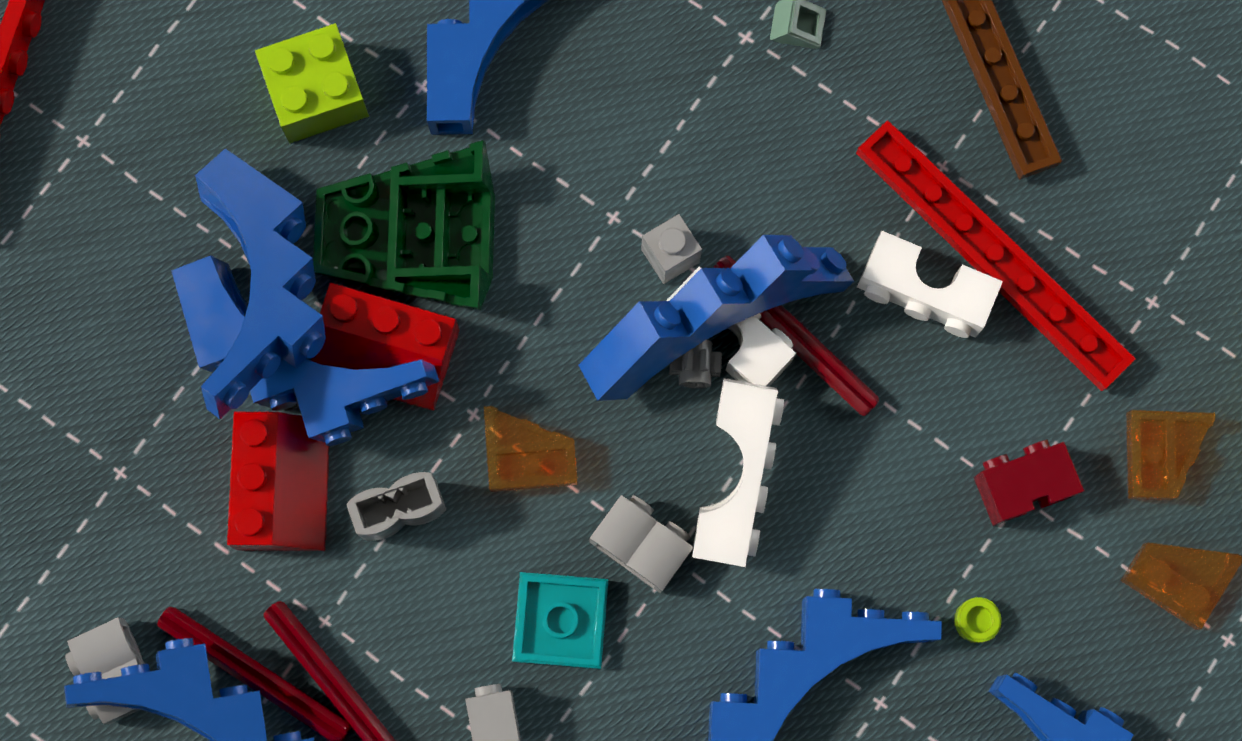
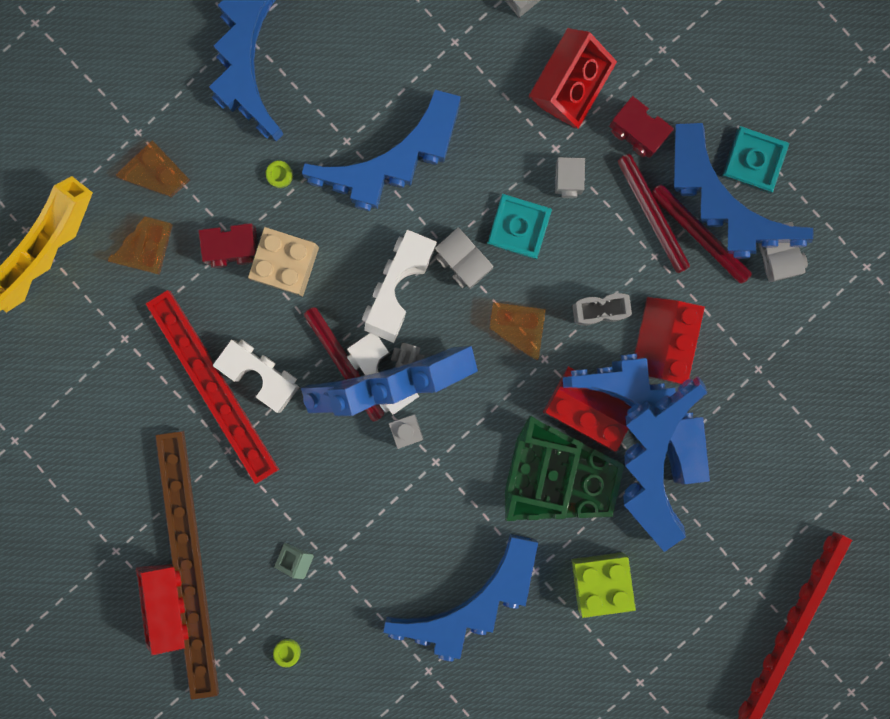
camera: 165 degrees left, 10 degrees up
(933, 472) = (283, 261): none -> tan brick

